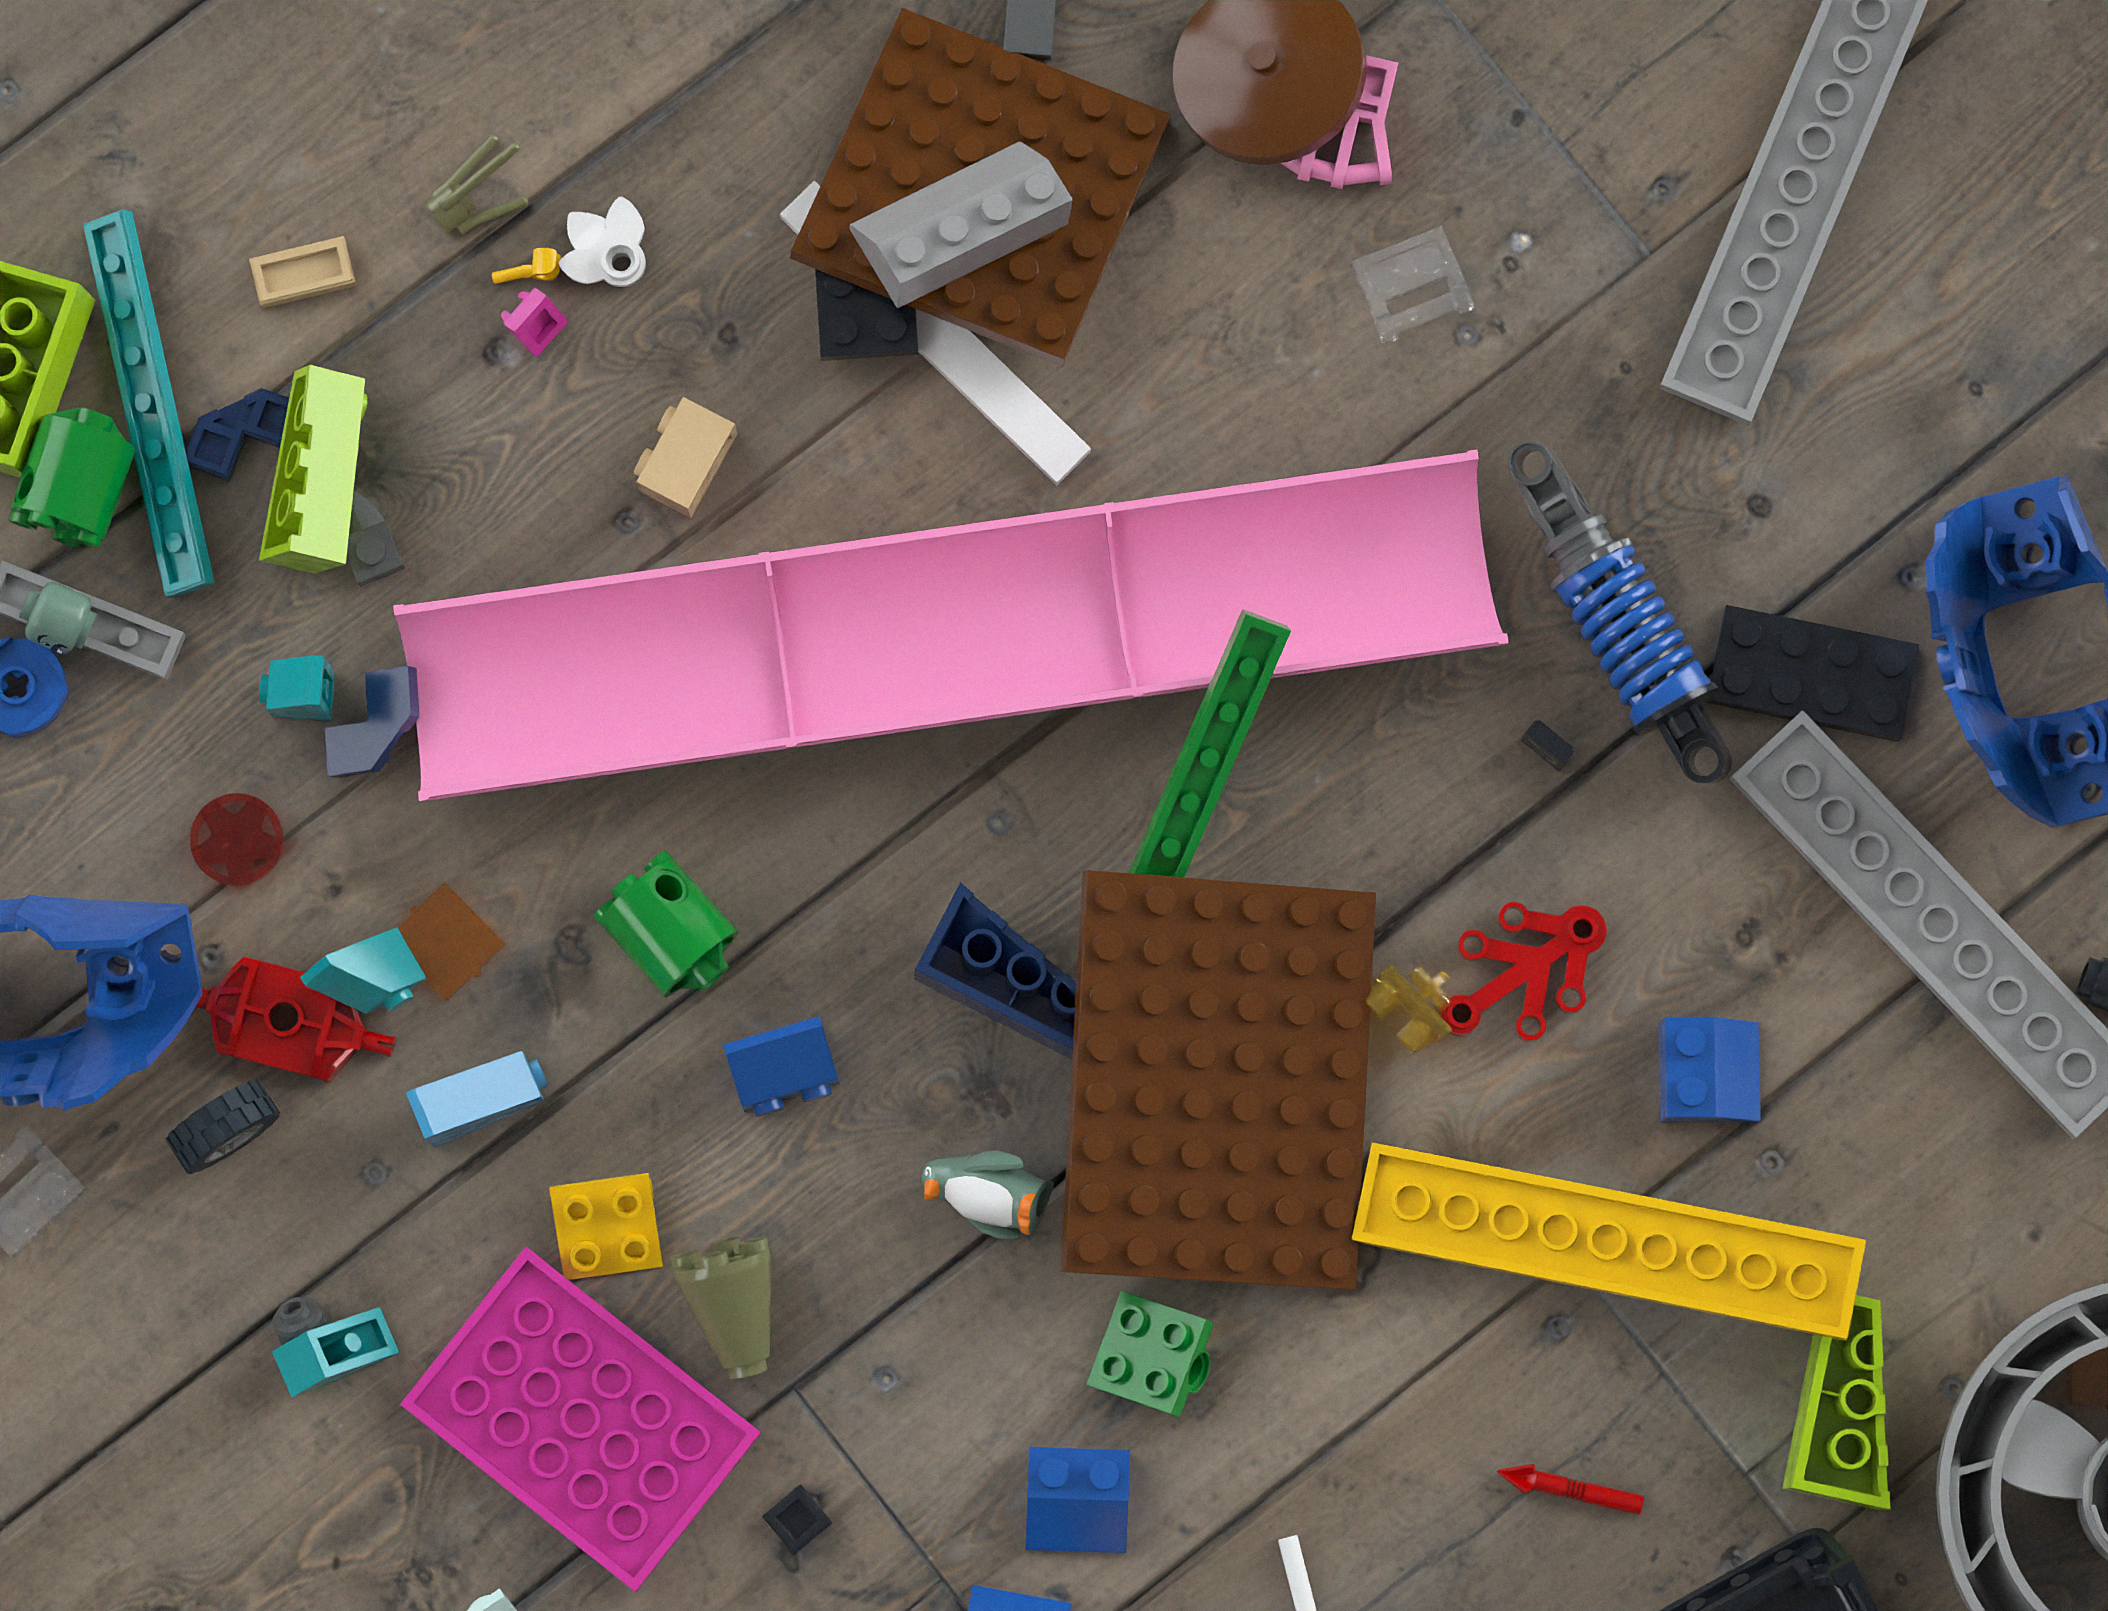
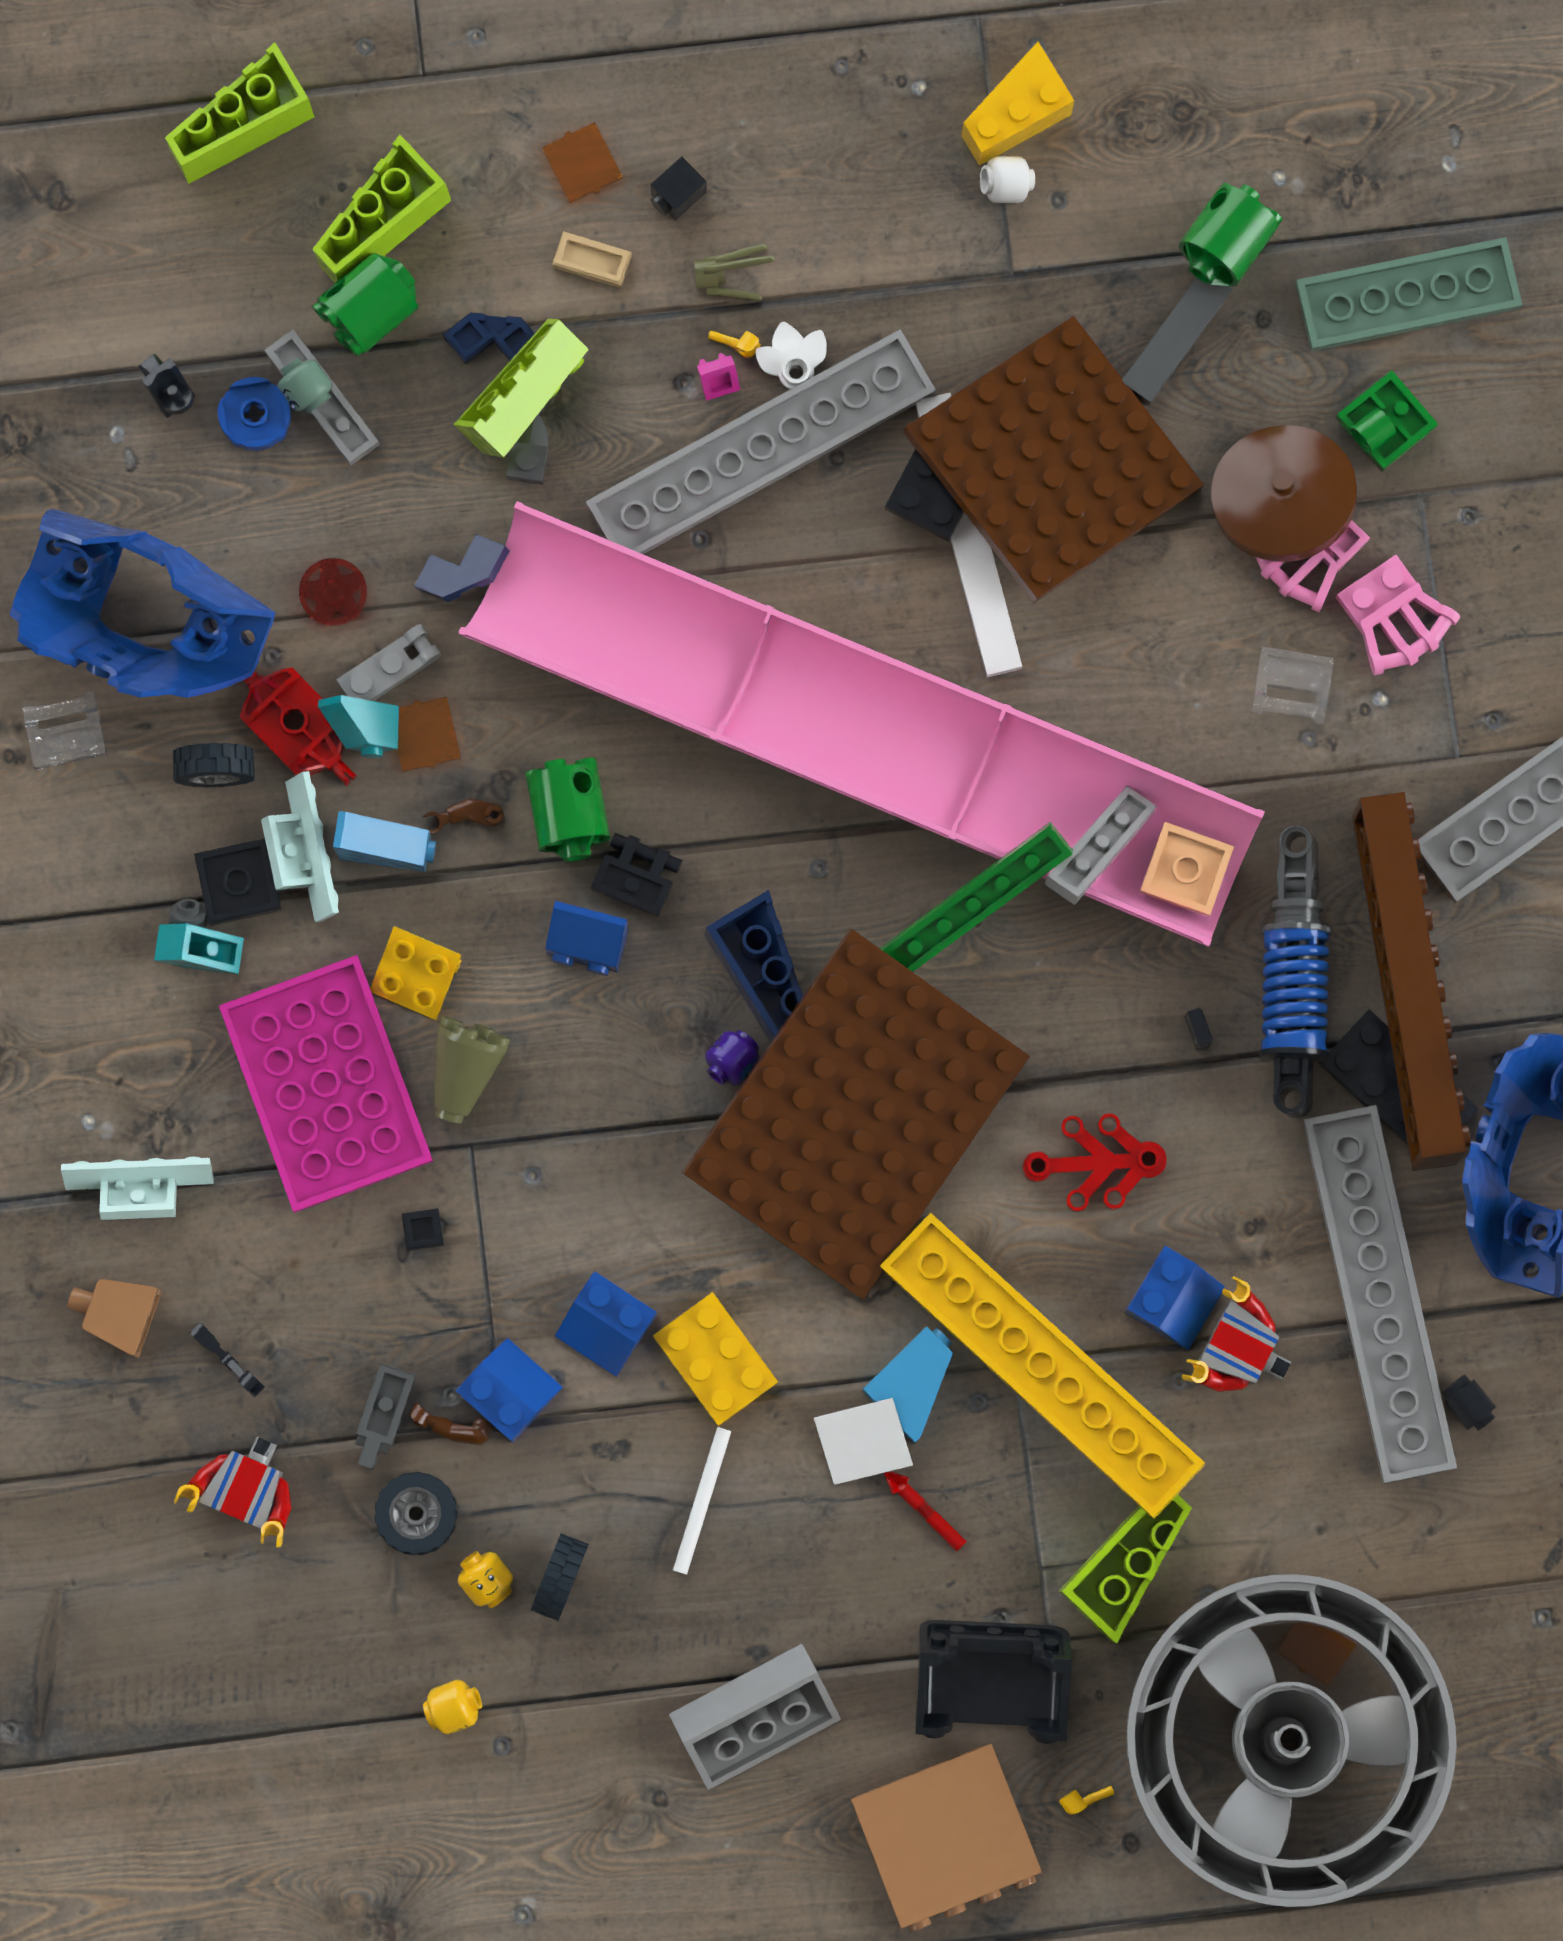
camera: 30 degrees right, 0 degrees up
(148, 404) = (444, 285): teal tile -> none
(222, 165) = (582, 162): none -> clear orange piece
(299, 688) = (429, 520): teal slope -> none
(333, 1245) = (237, 882): none -> black plate
(353, 131) = (677, 189): none -> black brick
(356, 888) = (389, 666): none -> light grey plate
(382, 1164) = (299, 850): none -> light aqua bracket
(555, 997) = (471, 810): none -> reddish brown arm
(634, 371) = (762, 446): none -> light grey plate
(685, 456) = (761, 518): tan brick -> none
(793, 970) = (632, 884): none -> black plate
(963, 222) = (1025, 473): light grey slope -> none
(989, 1191) = (669, 1096): animal -> none
(1034, 1102) = (732, 1057): none -> dark purple head
(1152, 1355) = (708, 1261): green plate -> none
(1229, 1464) = (715, 1359): none -> yellow plate
(1313, 600) = (1100, 845): none -> light grey plate
(1425, 569) = (1186, 869): none -> light nougat plate
(1426, 1022) = (1011, 1158): clear yellow hips -> none
(1450, 121) = (1381, 595): none -> bright pink plate
(1457, 1453) = (863, 1441): none -> white sticker
(1470, 1351) = (913, 1380): none -> dark azure slope
(1758, 545) = (1409, 981): none -> reddish brown brick
(1816, 1080) = (1239, 1345): none -> torso

